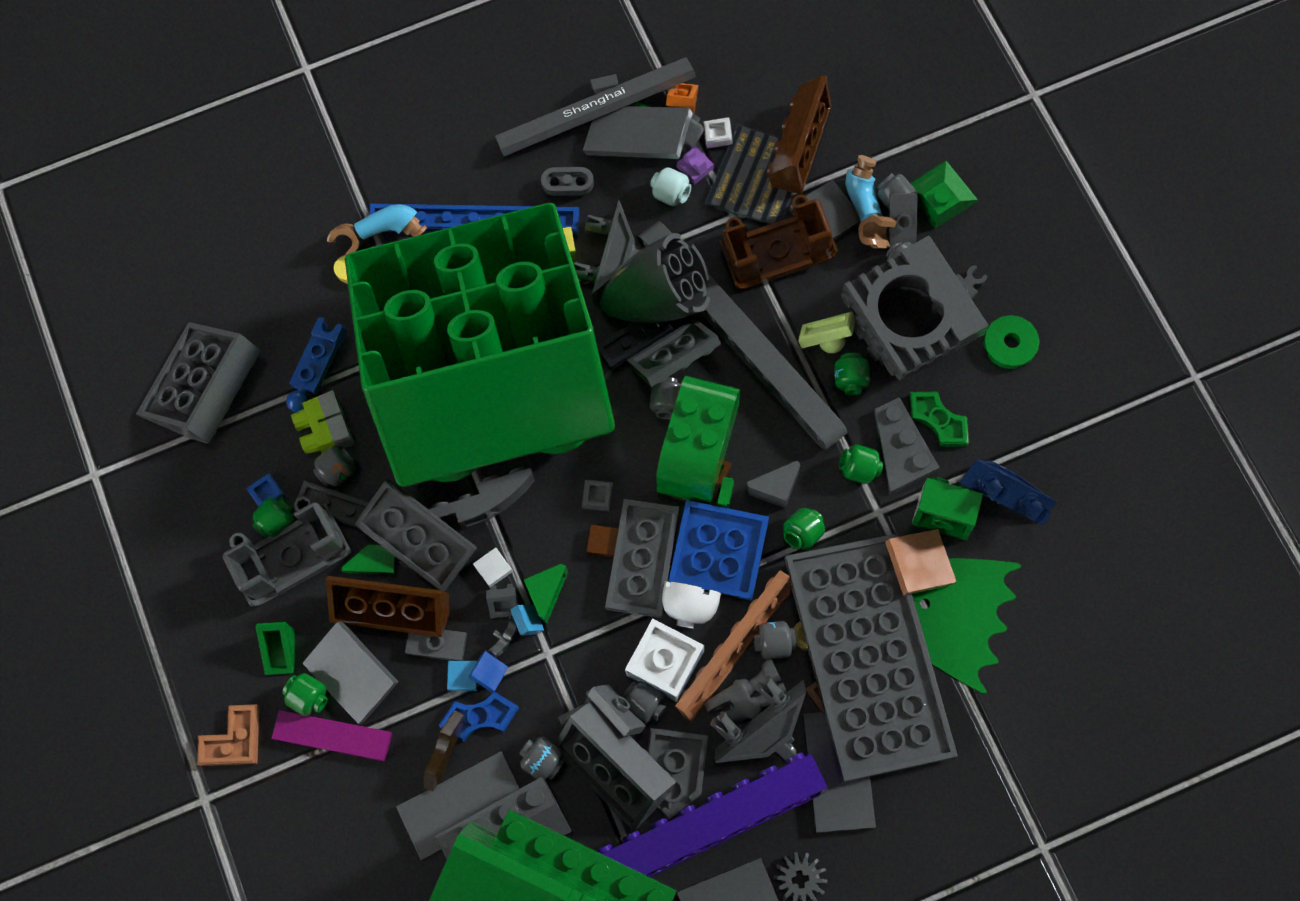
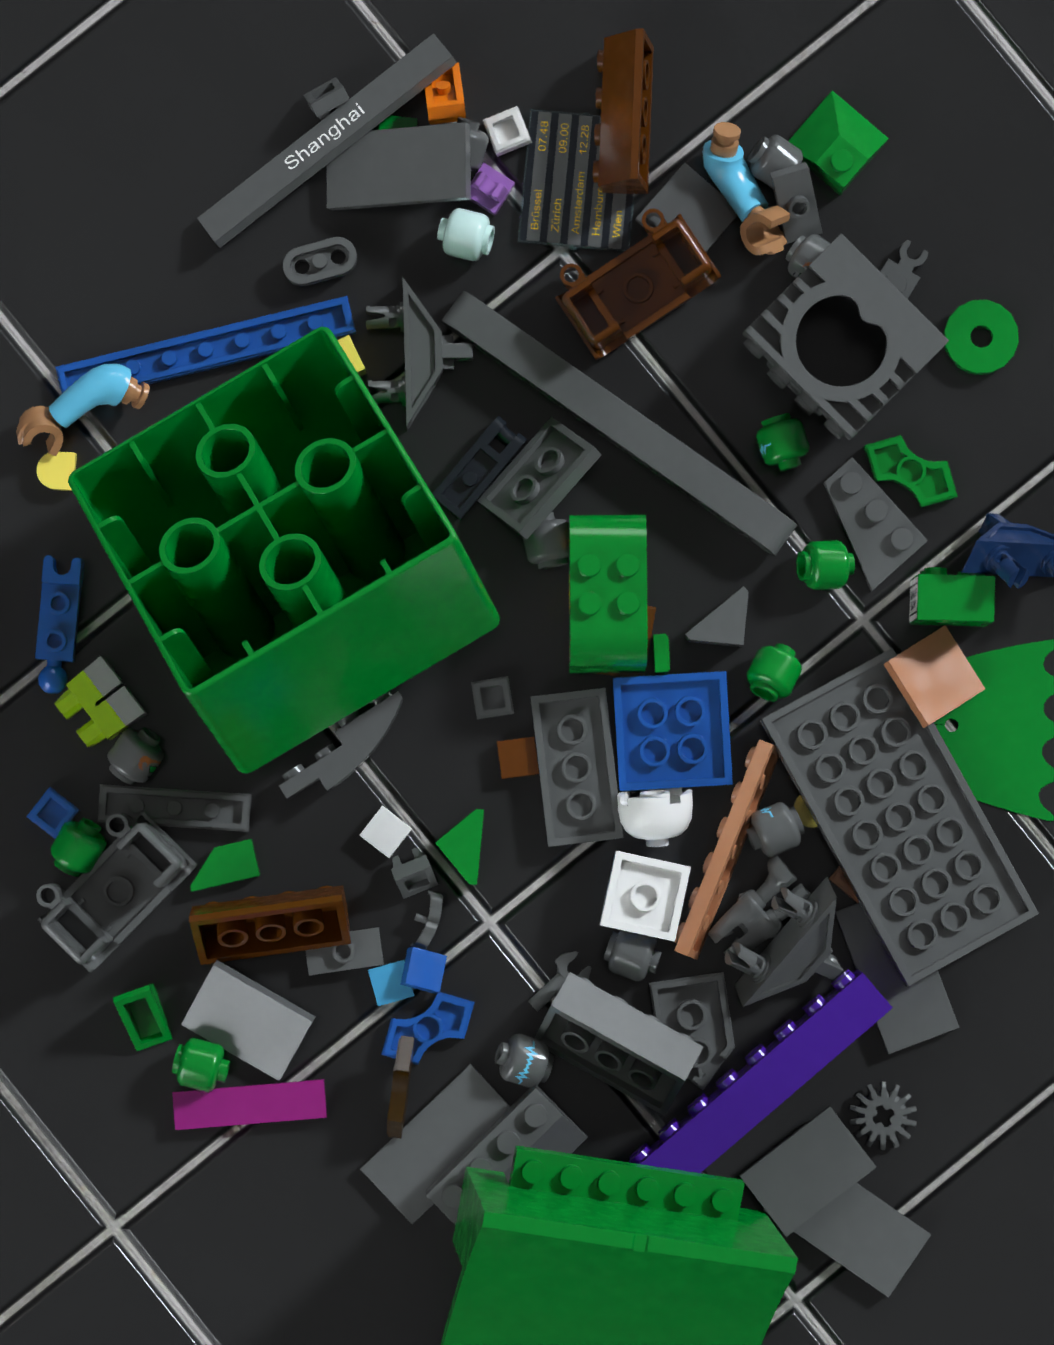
camera: 25 degrees left, 15 degrees up
(239, 743) = (134, 1148): nougat tile -> none
(415, 535) = (275, 822): dark grey tile -> none
(527, 620) = (452, 890): dark azure tile -> none
(616, 710) = (603, 977): dark grey plate -> none
(658, 284) = (496, 394): dark grey cylinder -> none
(828, 332) = (736, 393): yellowish green tile -> none

